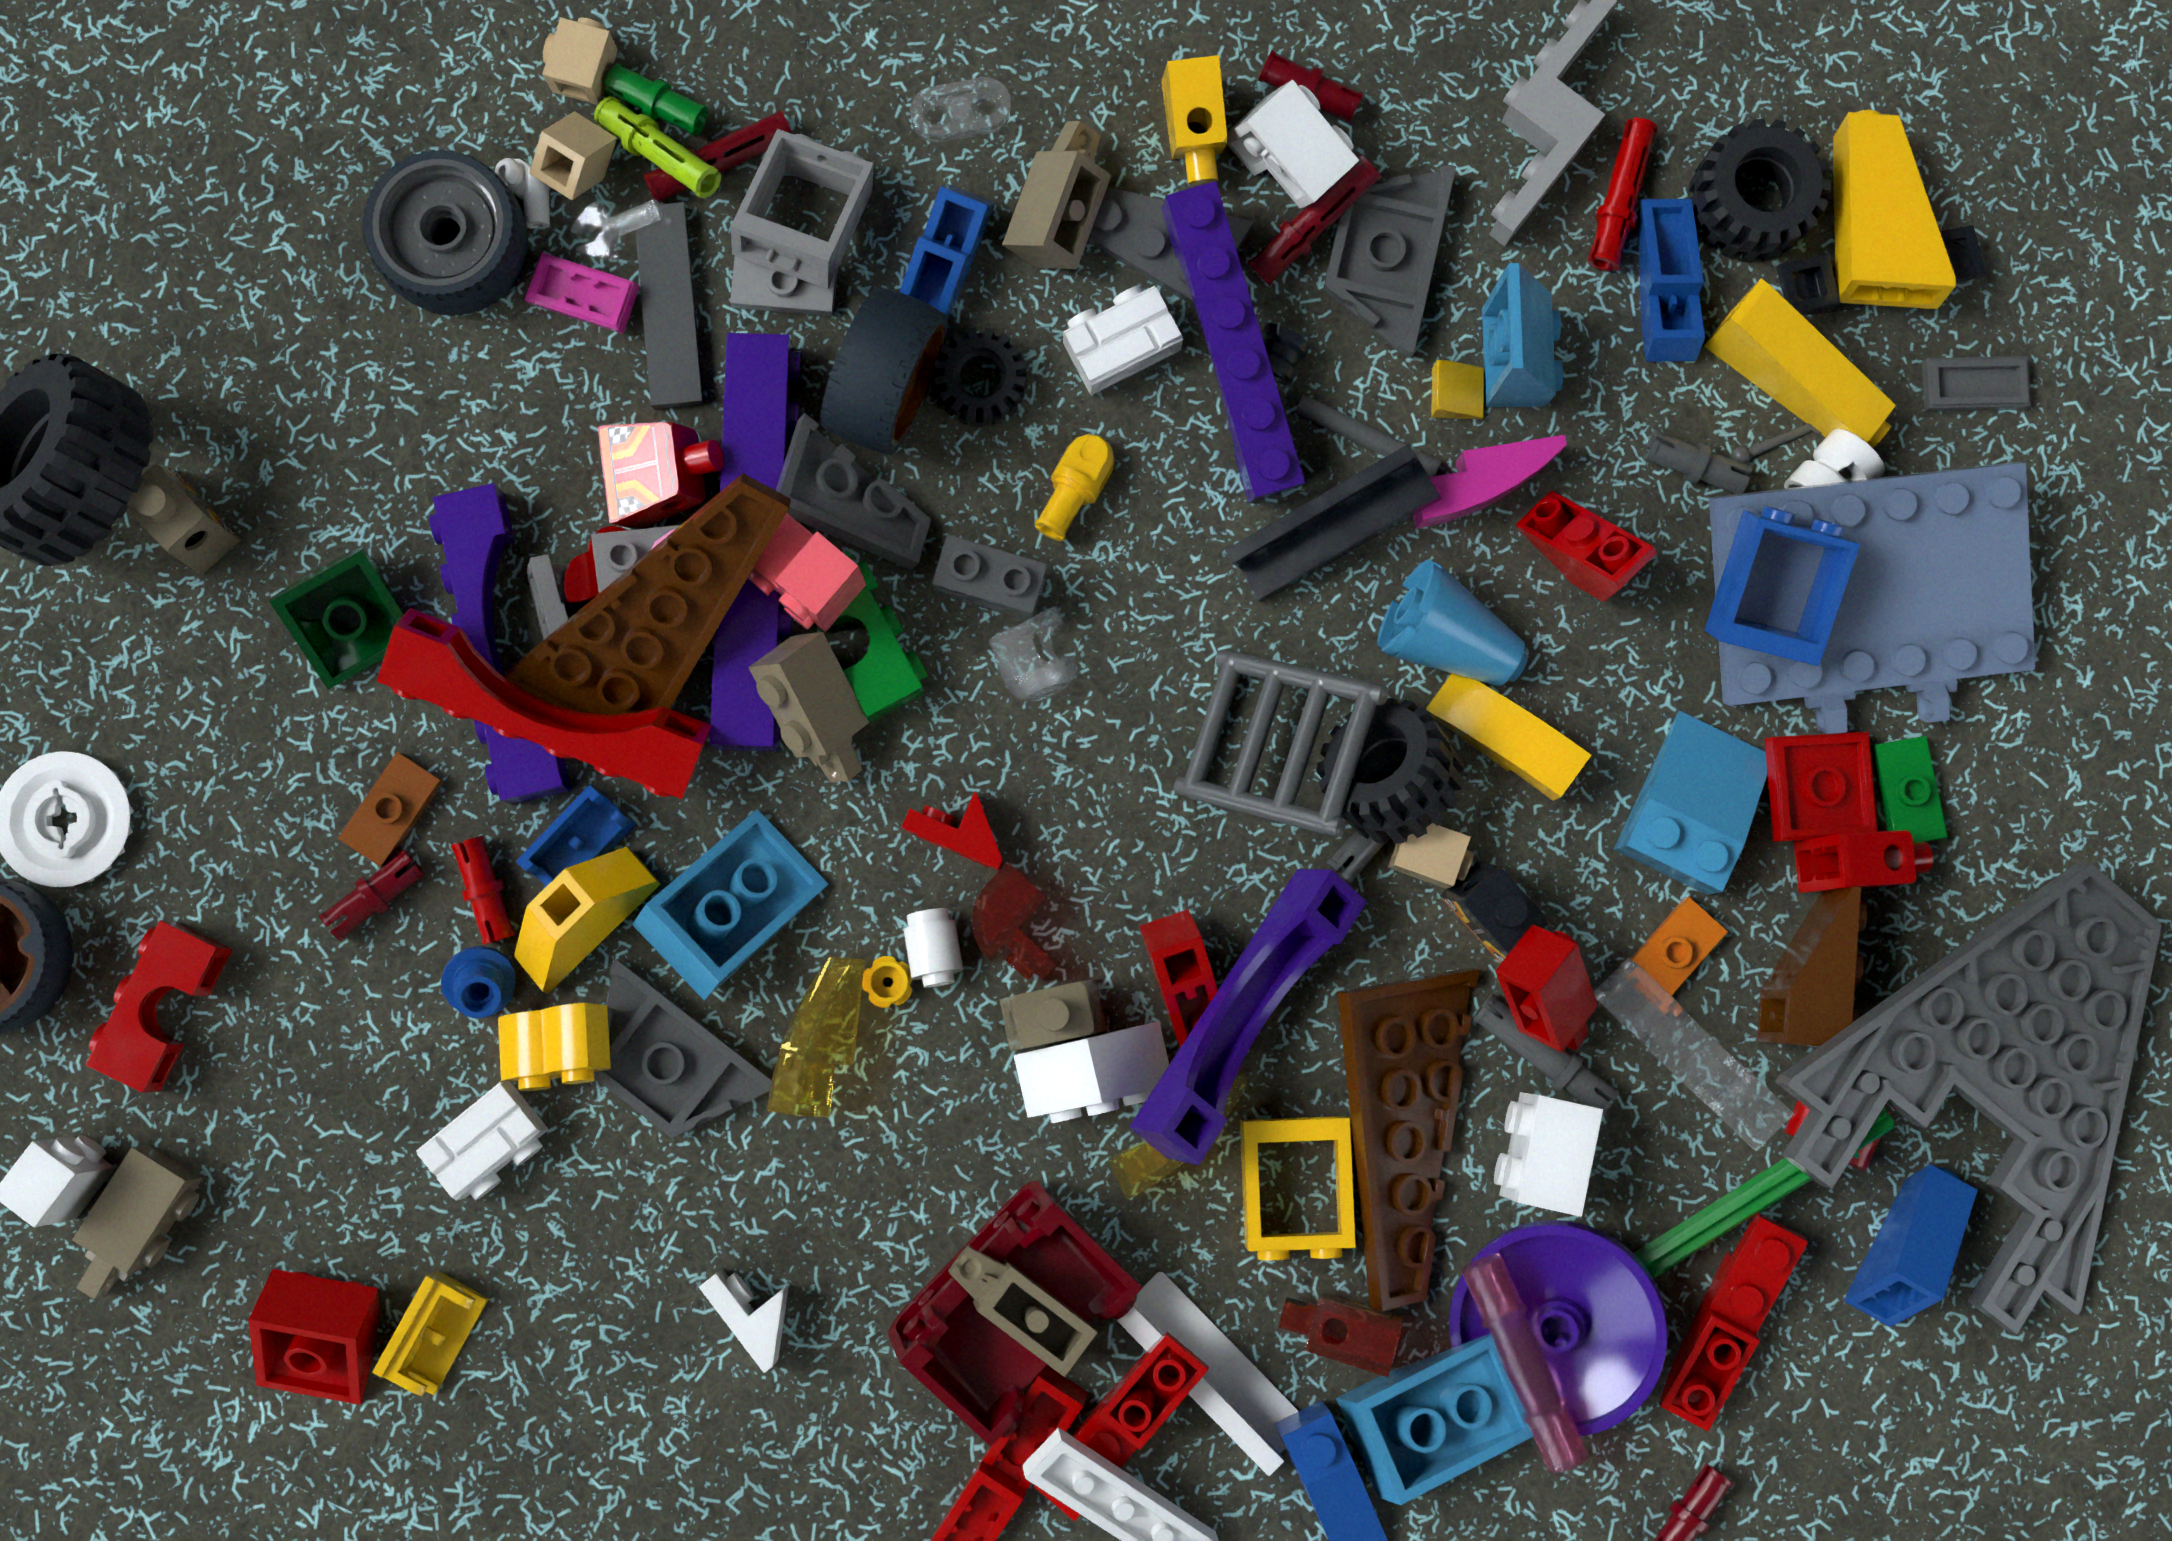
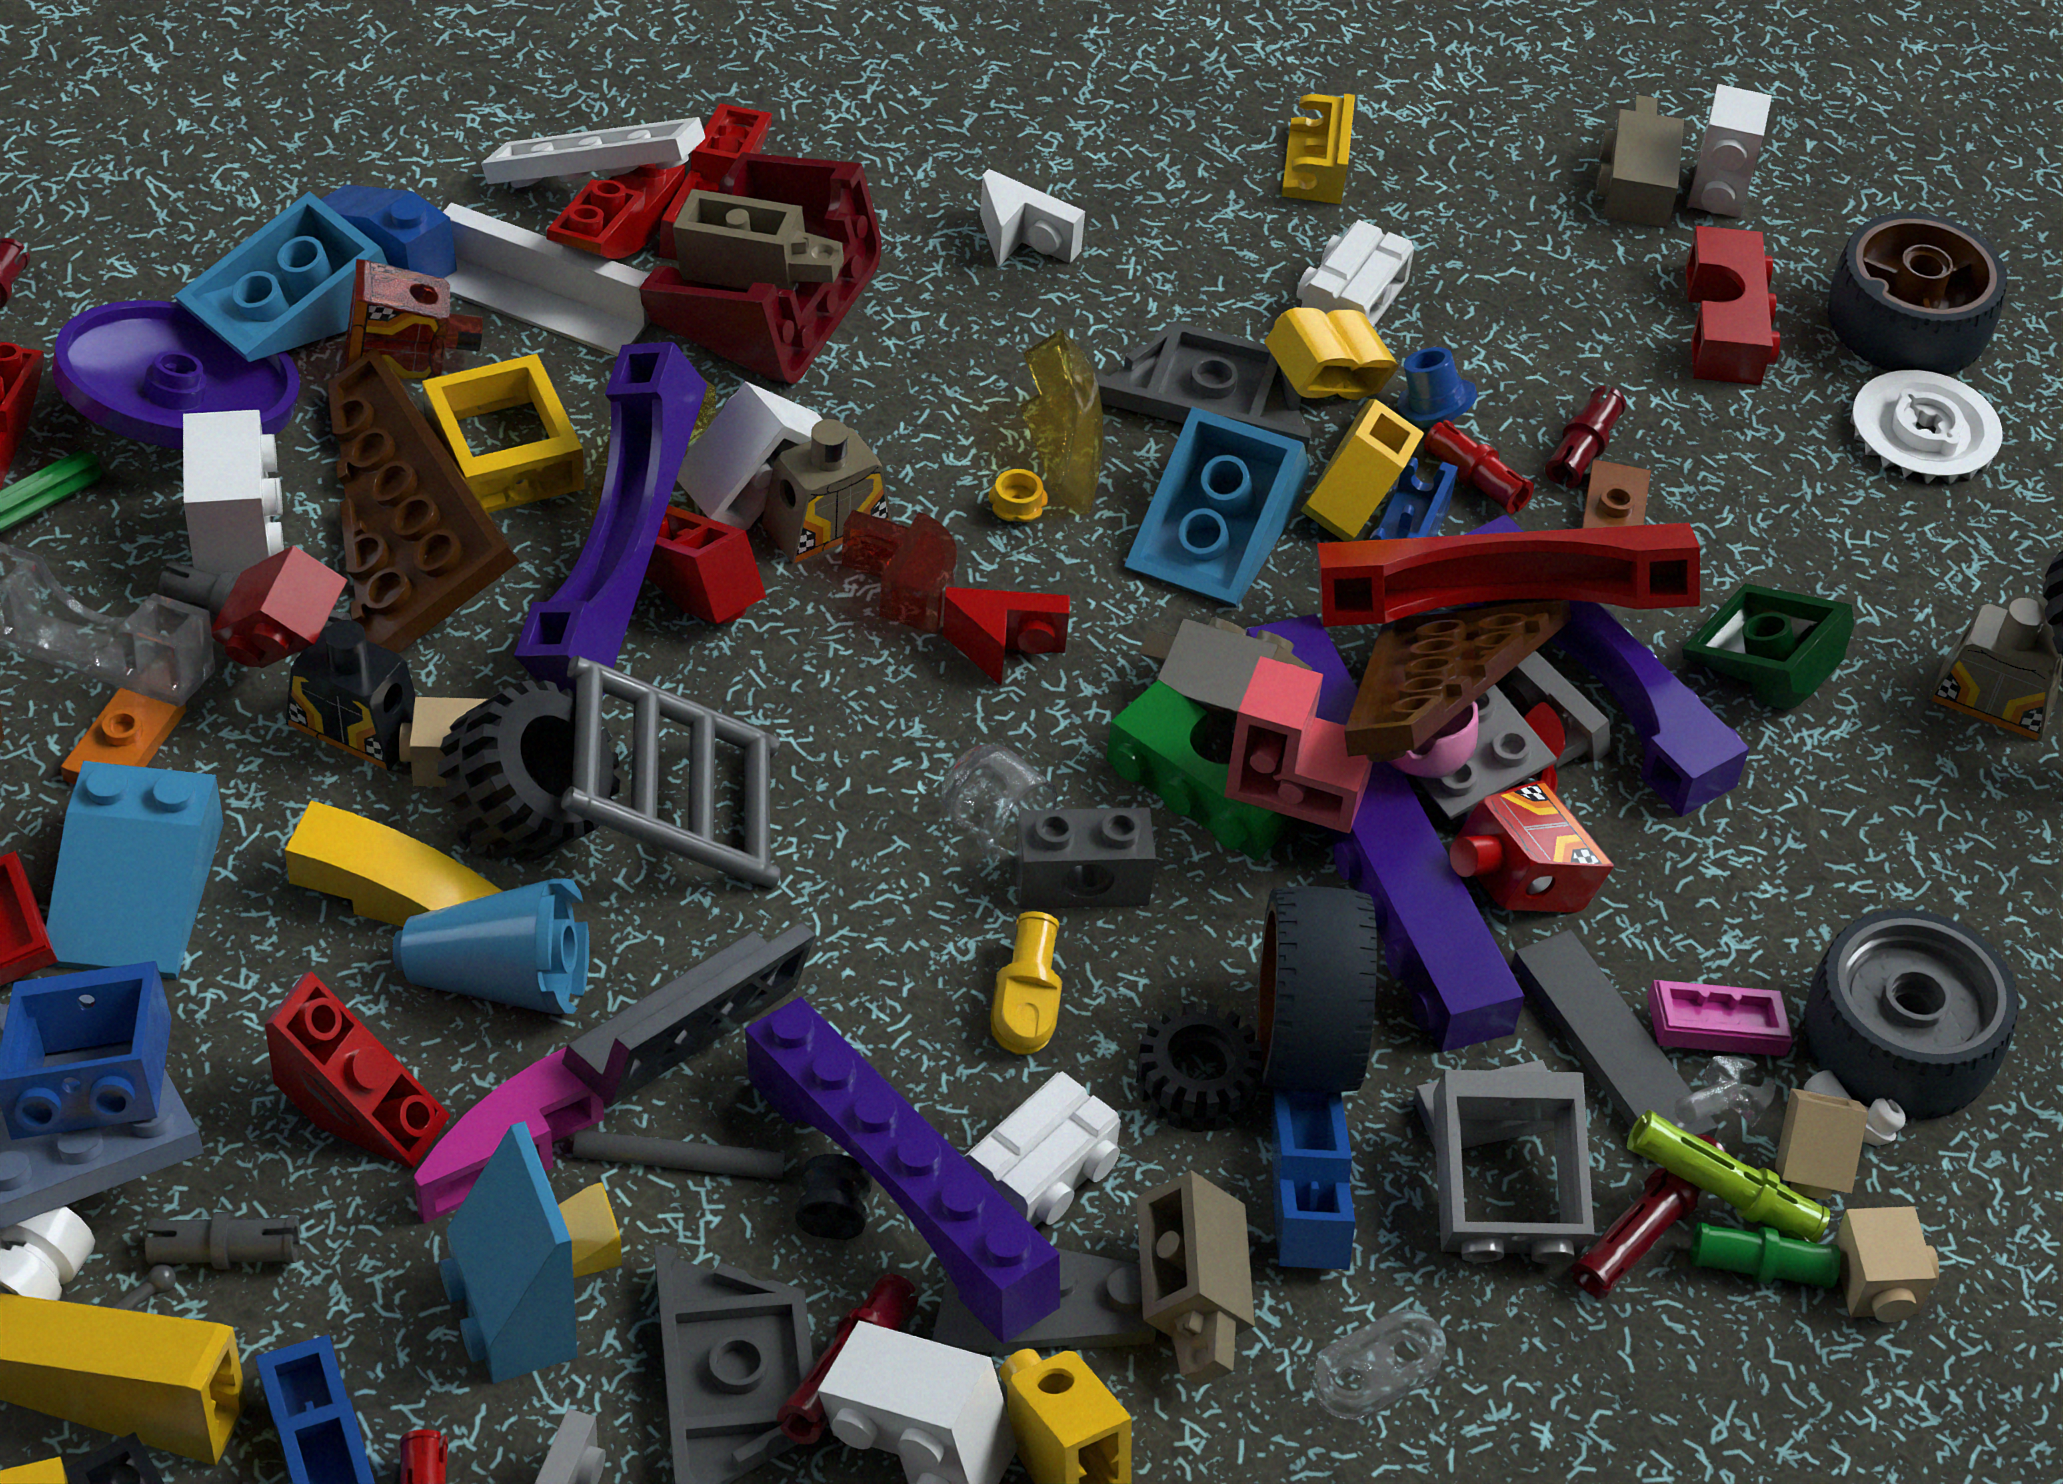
camera: 160 degrees right, 35 degrees down
(314, 1335) = (1426, 124): red slope -> none
(846, 501) = (1235, 875): dark grey wing -> none
(933, 947) = (984, 530): white brick -> none
(1525, 1363) = (209, 328): clear pink piece -> none

